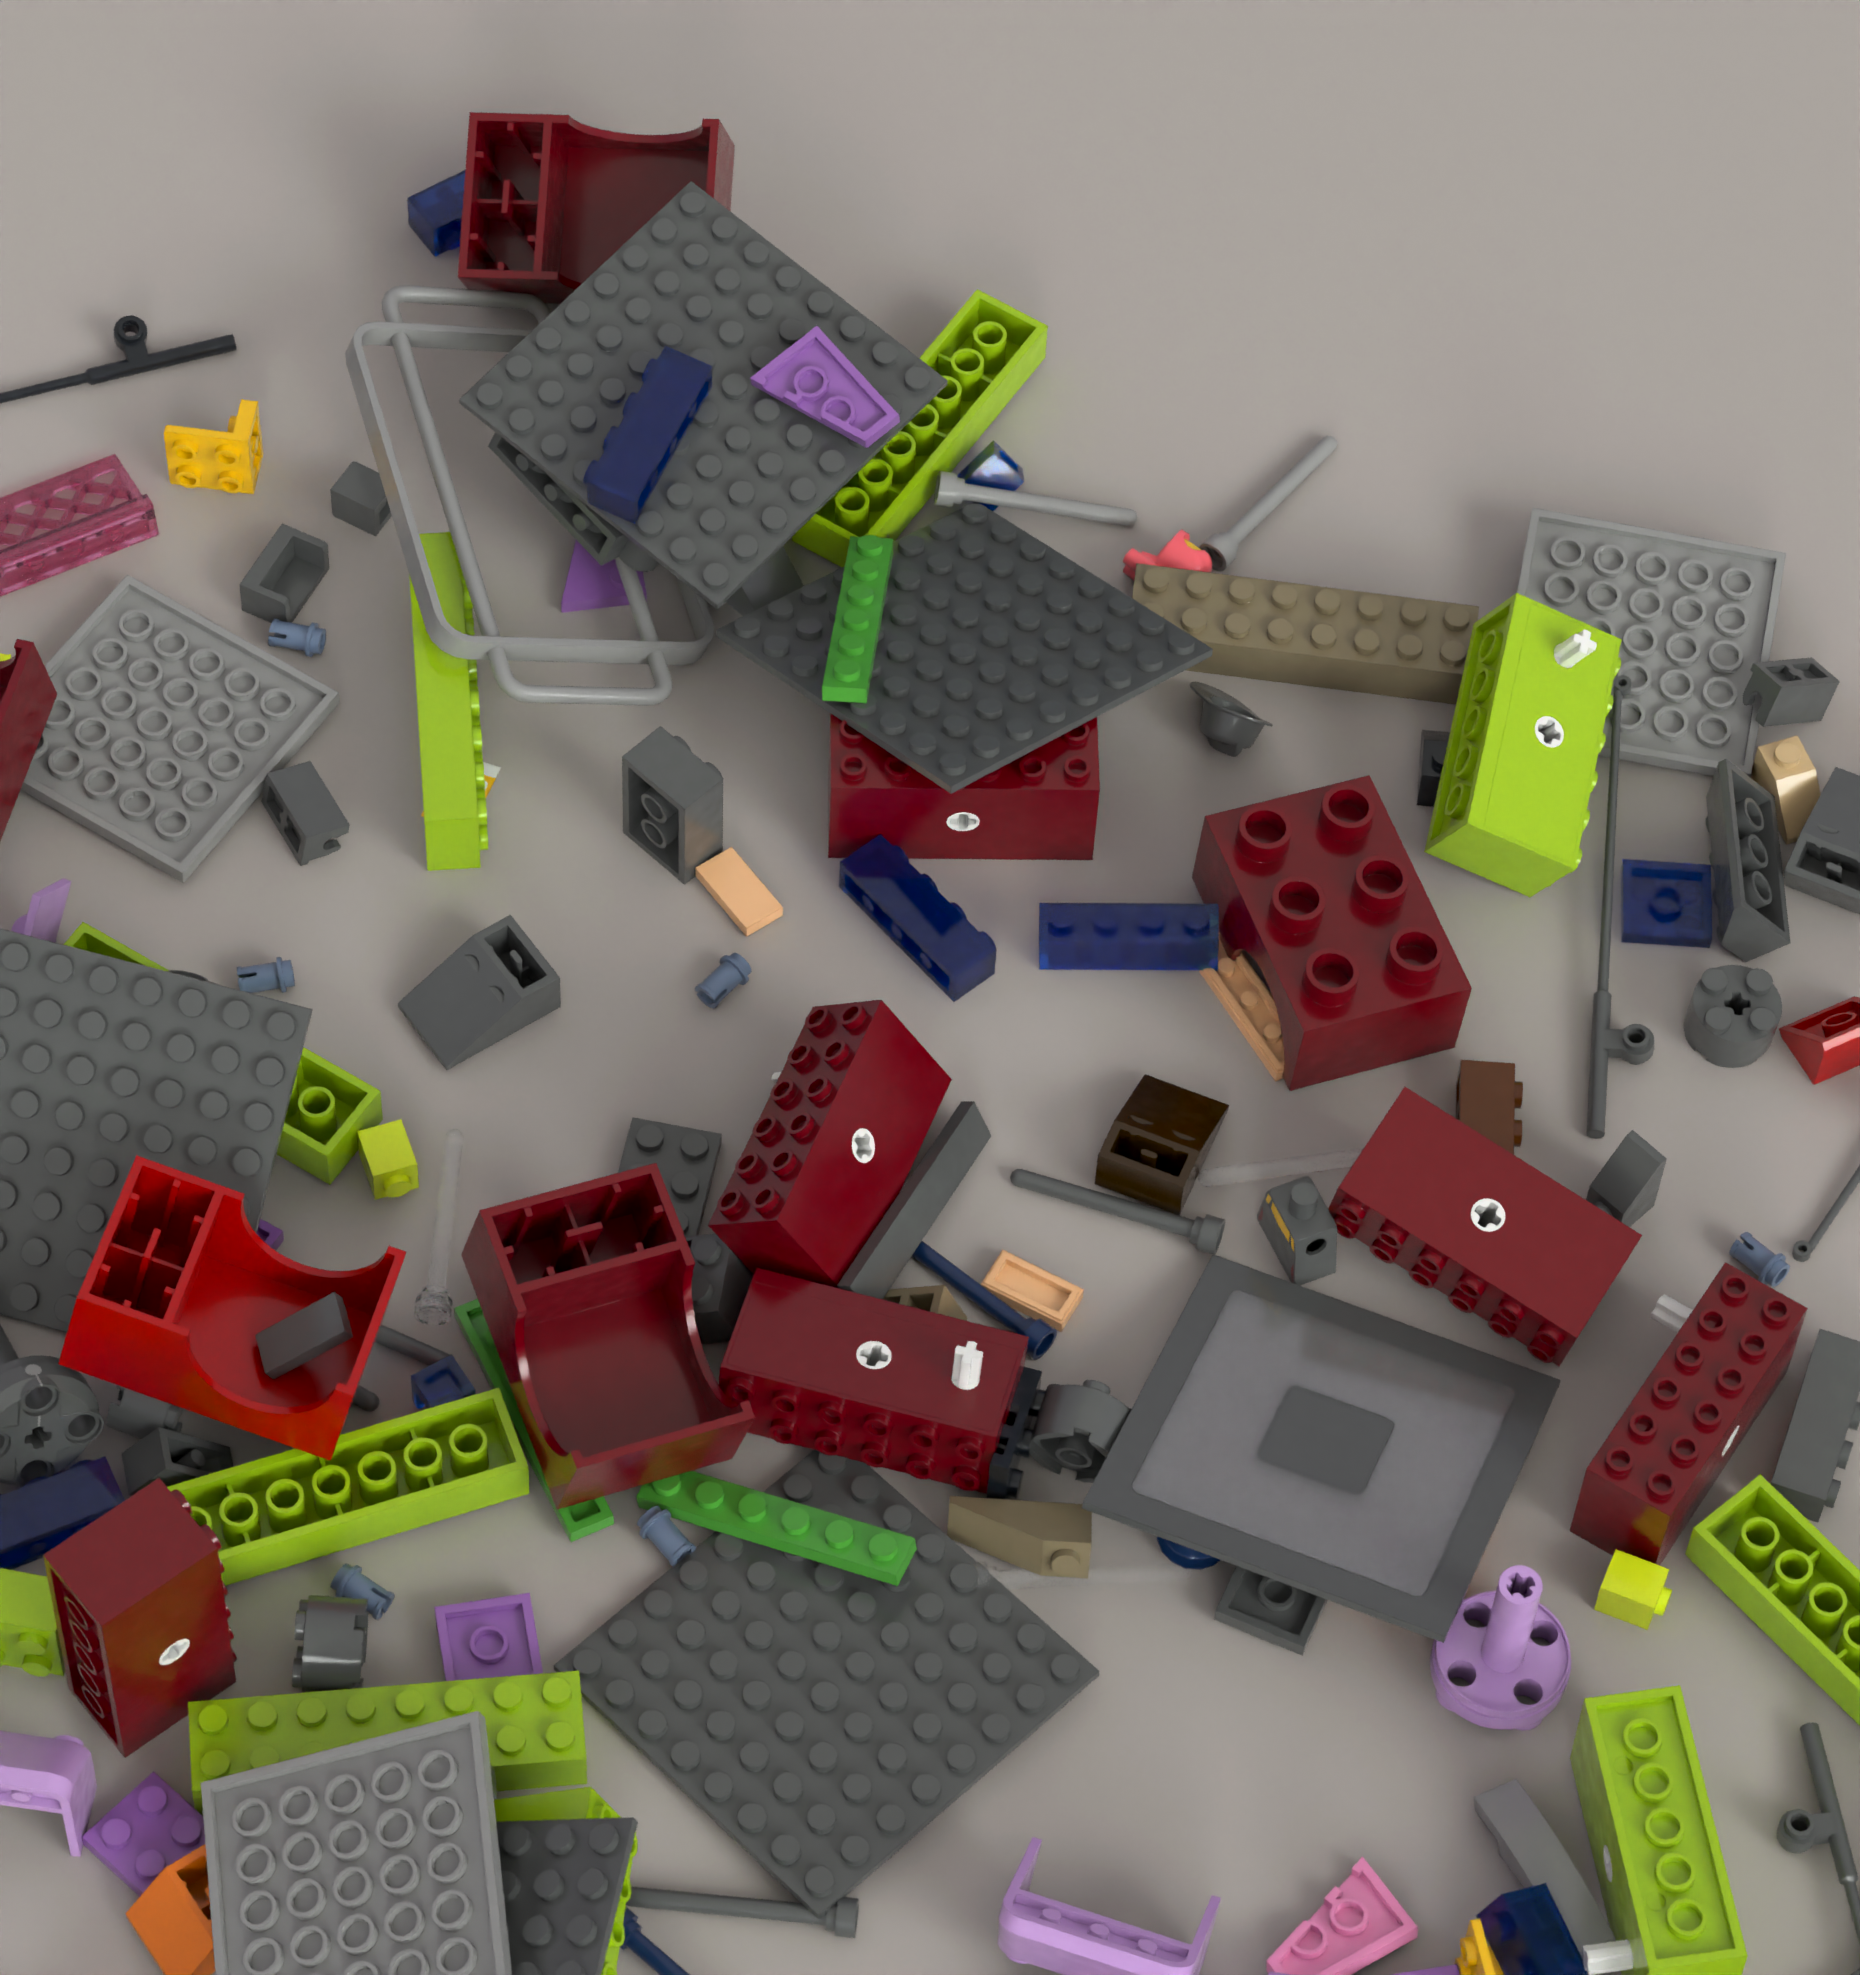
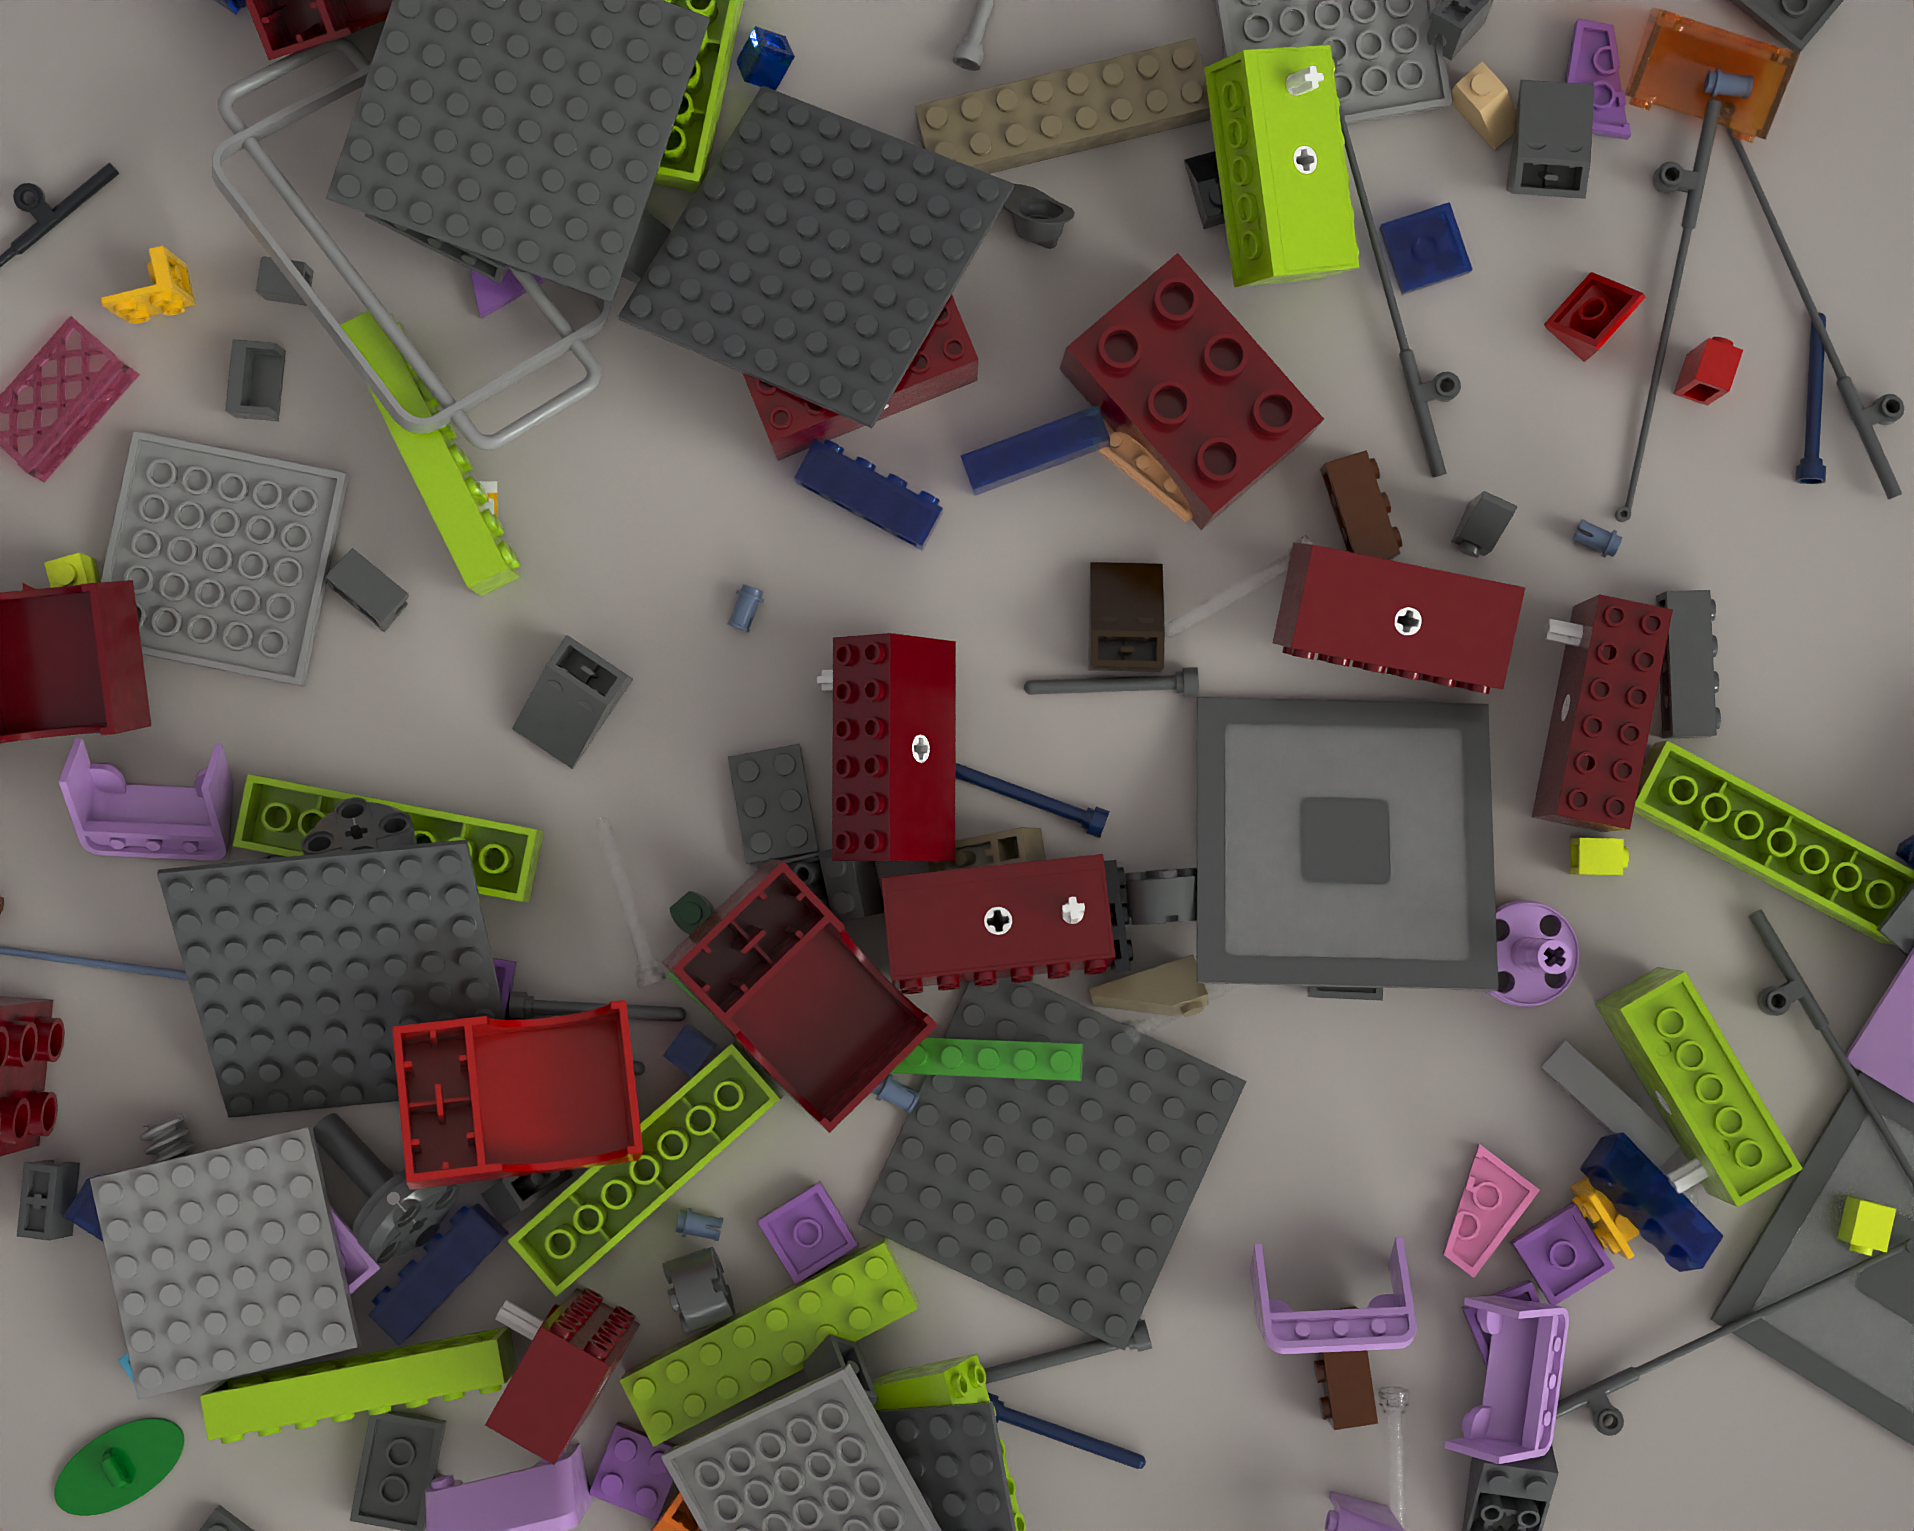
camera: 20 degrees left, 30 degrees up
(266, 976) = (405, 745): sand blue pin -> none
(298, 637) = (290, 430): sand blue pin -> none
(304, 1335) = (578, 1086): dark grey tile -> none
(388, 1159) = (565, 869): neon yellow brick -> none
(648, 434) = (494, 177): clear blue brick -> none
(672, 803) = (648, 485): dark grey brick -> none
(739, 891) = (724, 522): light nougat tile -> none
(828, 388) = (619, 73): medium lavender wing -> none
(858, 619) = (726, 269): bright green plate -> none
(918, 1204) = (970, 760): dark grey tile -> none
(953, 490) = (742, 88): light grey piece -> none
(1032, 1290) = (1076, 779): light nougat tile -> none
(1176, 554) = (943, 82): coral piece -> none
(1298, 1218) = (1255, 656): dark grey torso -> none
(1733, 1015) = (1513, 314): dark grey brick -> none
(1746, 864) = (1479, 196): dark grey slope -> none

